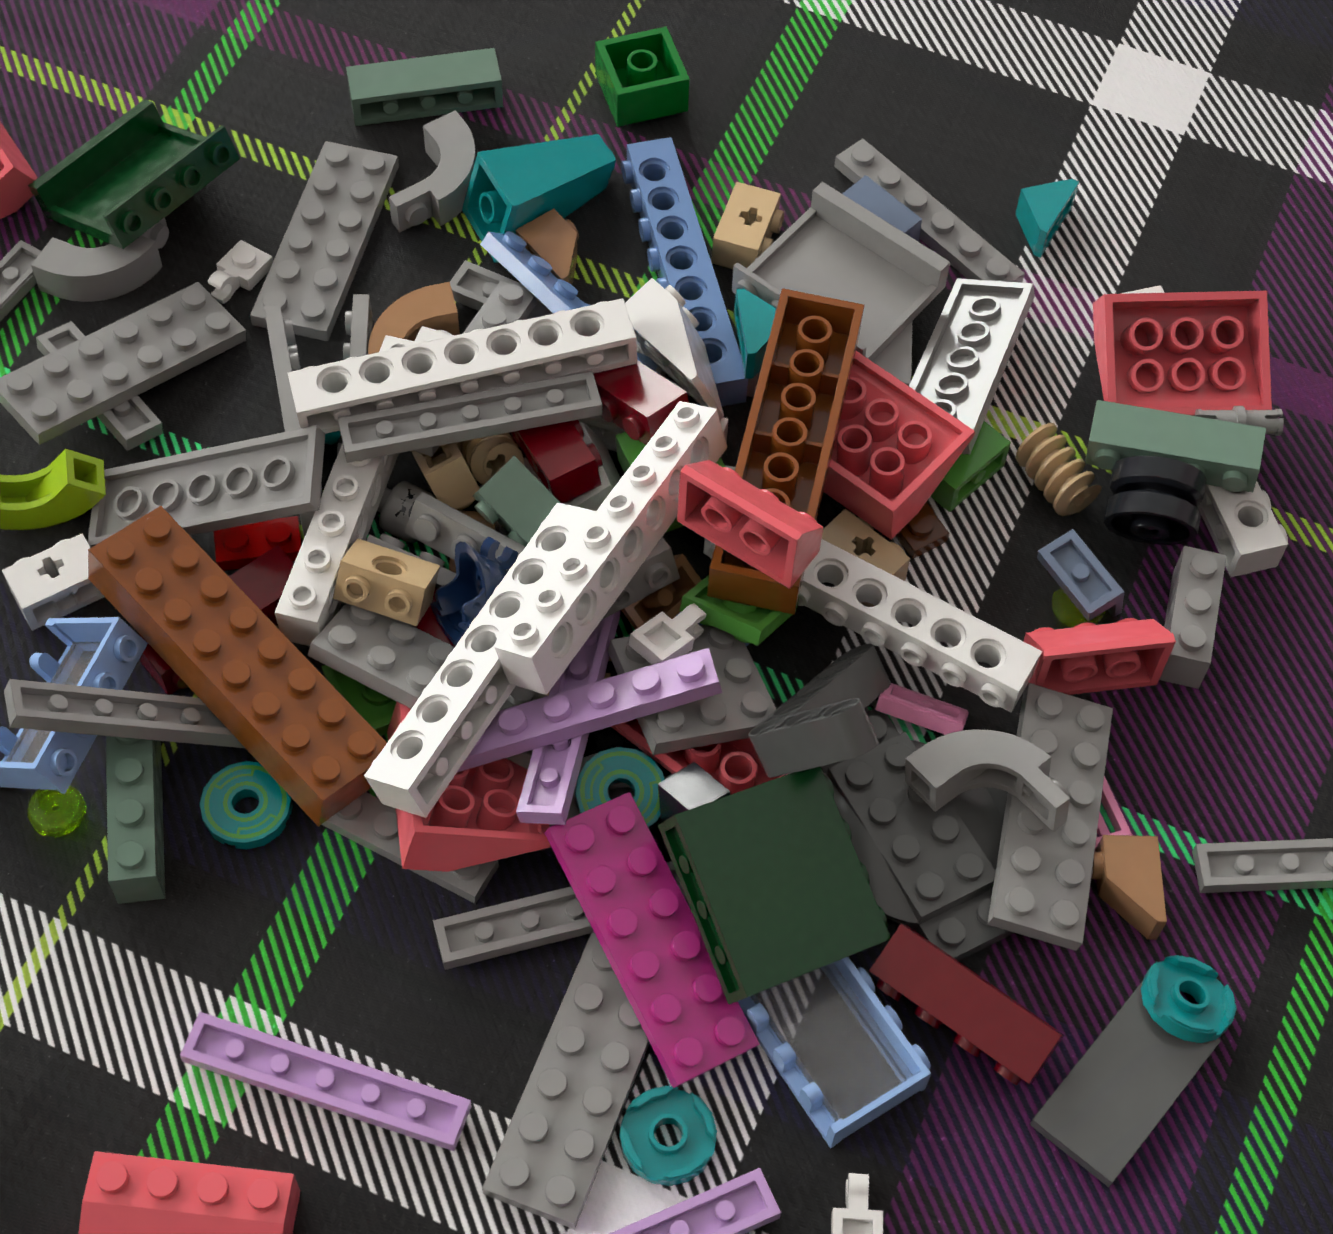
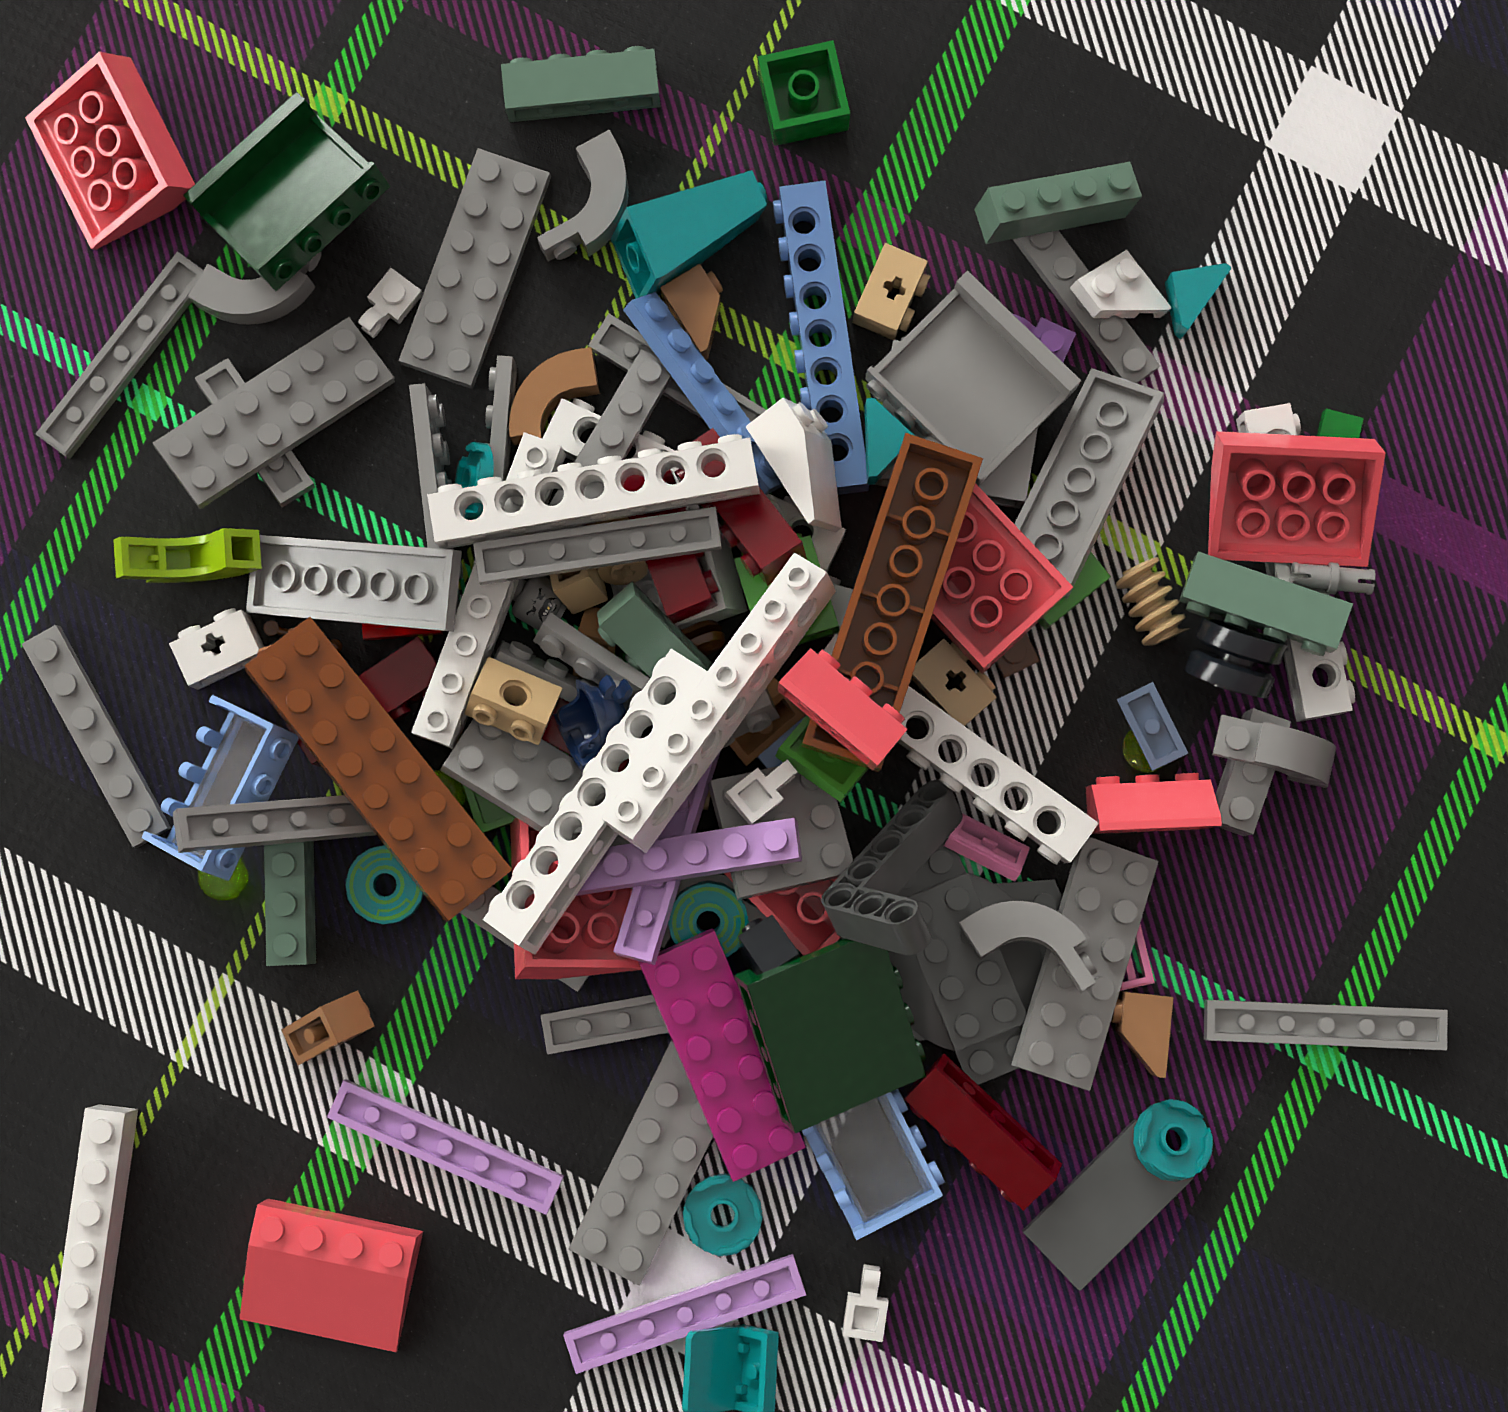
camera: 10 degrees right, 25 degrees up
(179, 955) = (328, 1027): none -> medium nougat slope
(885, 206) = (1023, 289): sand blue panel -> none
(900, 139) = (1057, 202): none -> sand green brick
(973, 211) = (1119, 290): none -> white wing
(1224, 572) = (1276, 747): none -> light grey arch

